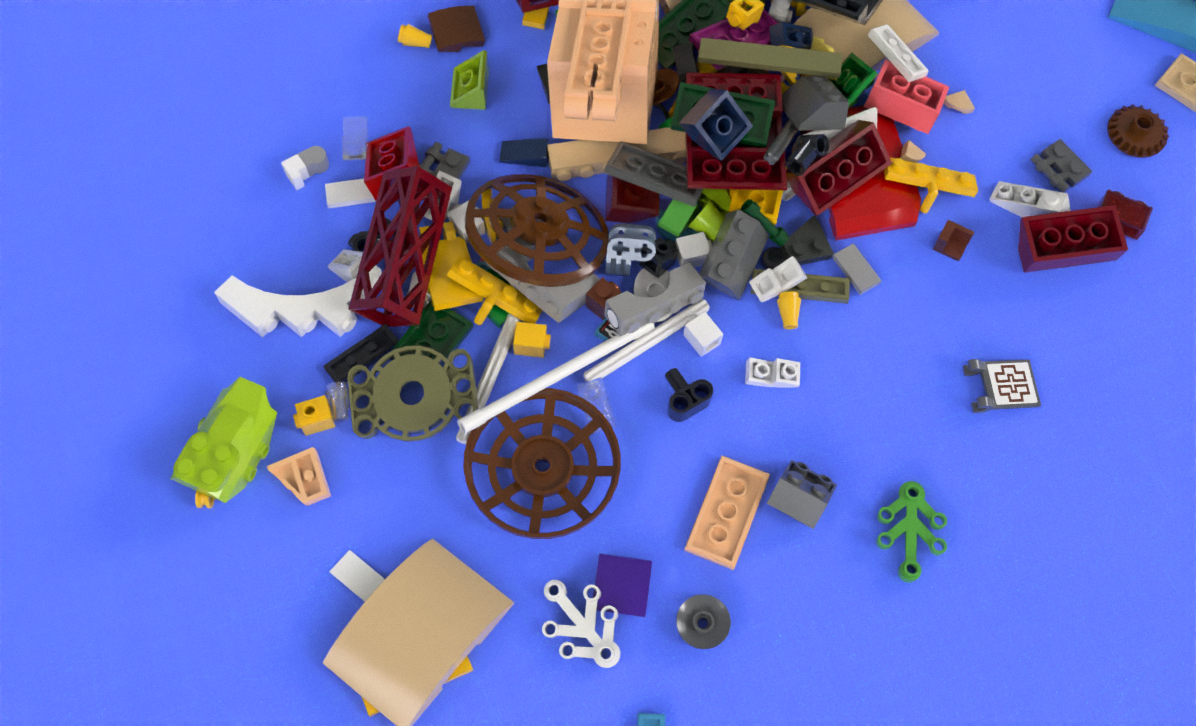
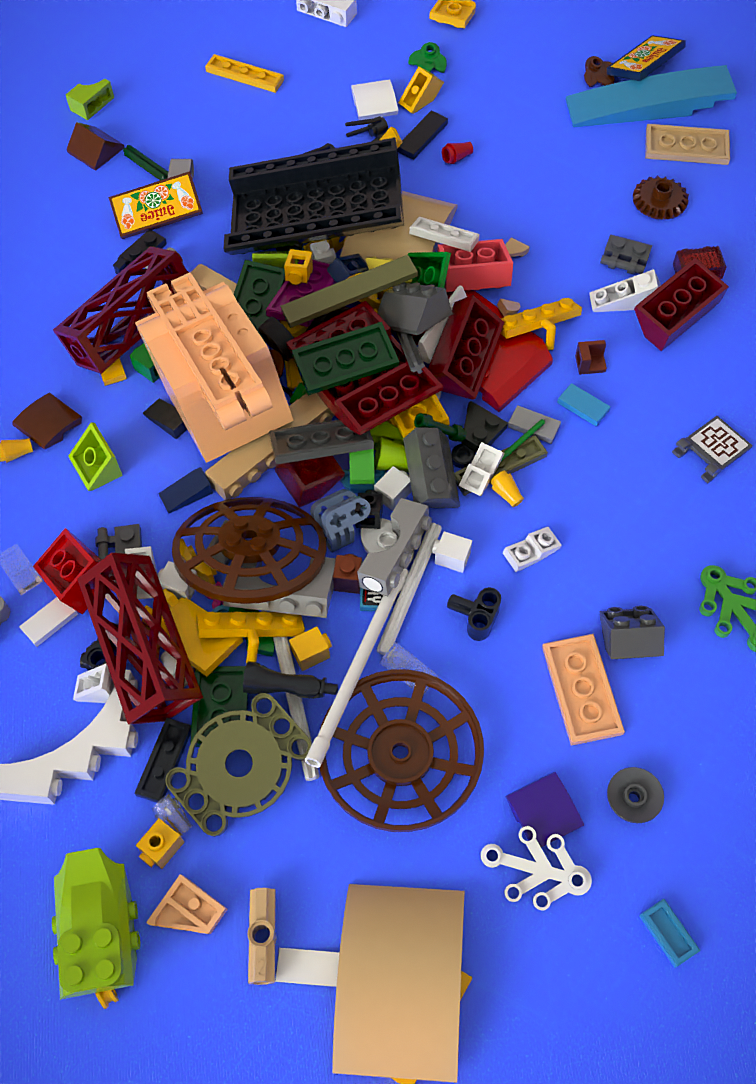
camera: 30 degrees left, 5 degrees down
(331, 546) = (262, 955): none -> tan piece
(473, 339) = (264, 680): none -> black piece
(716, 123) = (348, 366): dark blue slope -> none
(807, 150) = (436, 347): black piece -> none
(834, 275) = (523, 438): none -> green axle
(914, 278) = (583, 404): none -> dark azure tile

